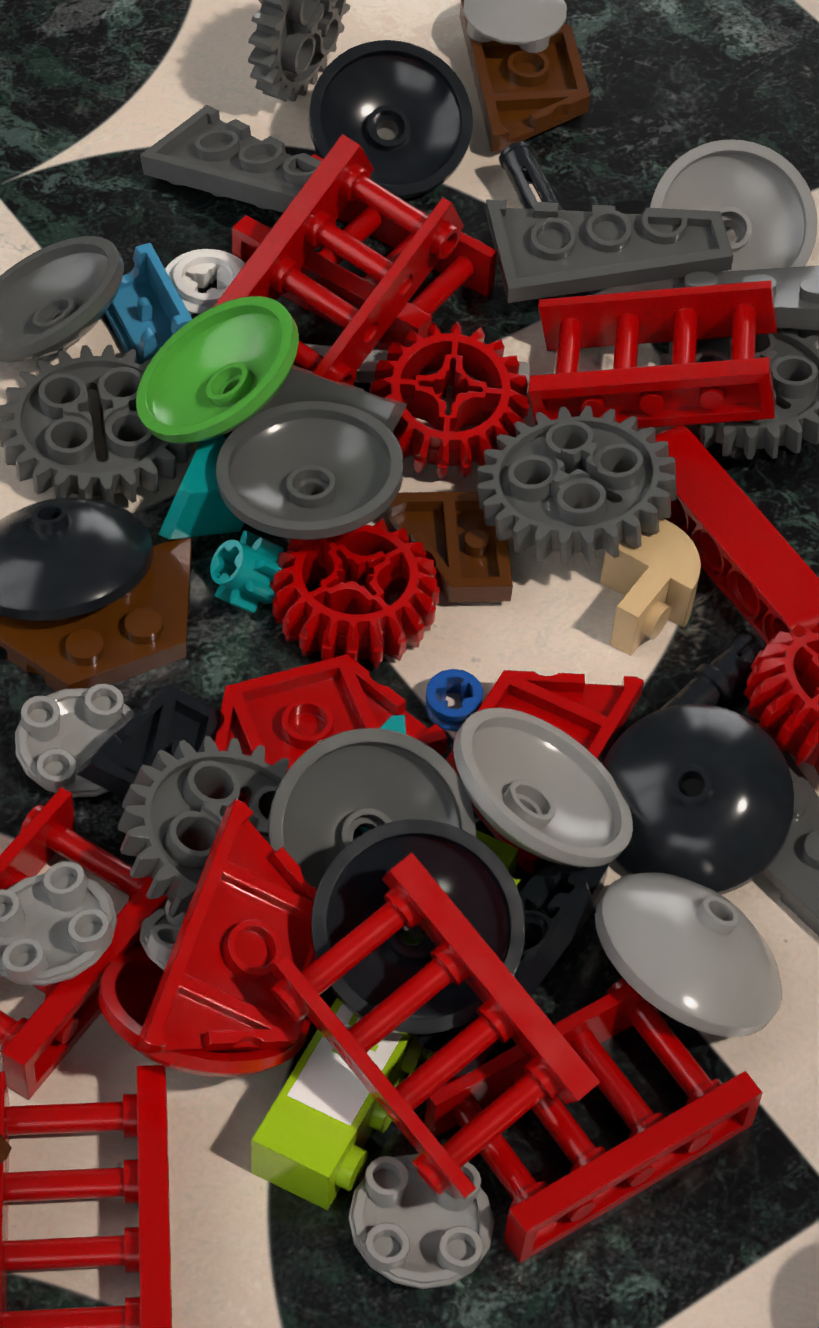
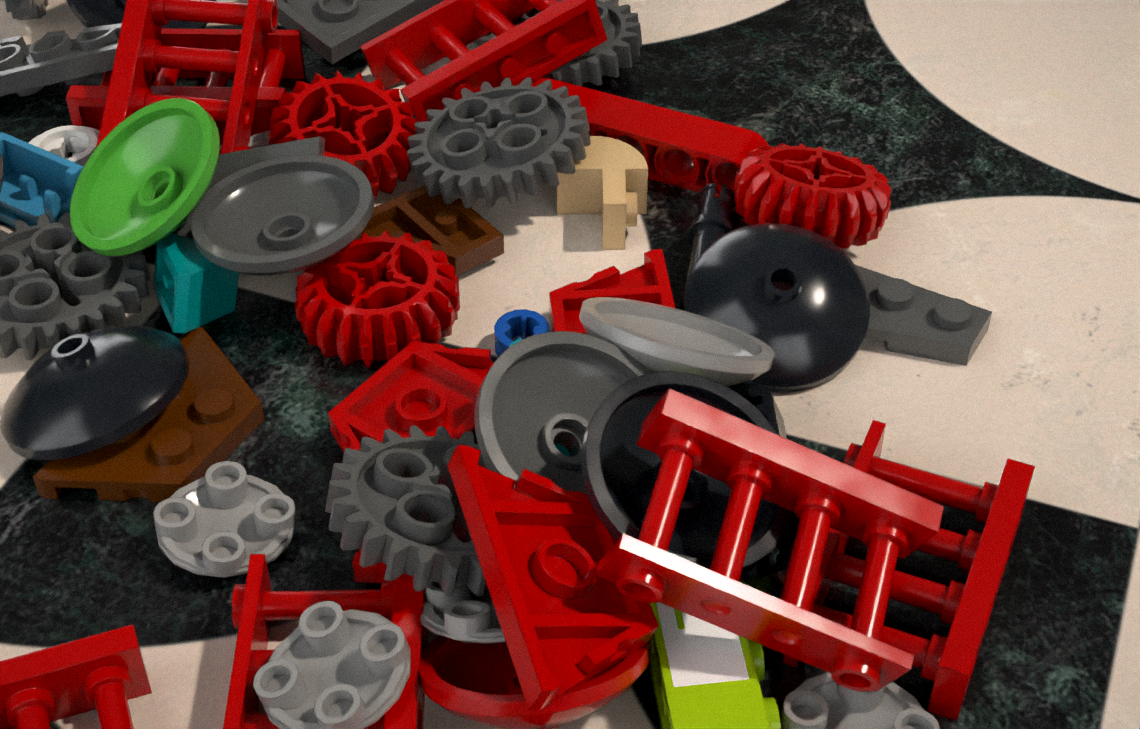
camera: 30 degrees left, 10 degrees down
(156, 726) = (298, 487): black wing -> none
(245, 571) = (275, 323): teal gear -> none
(689, 953) = (883, 397): light grey dish -> none

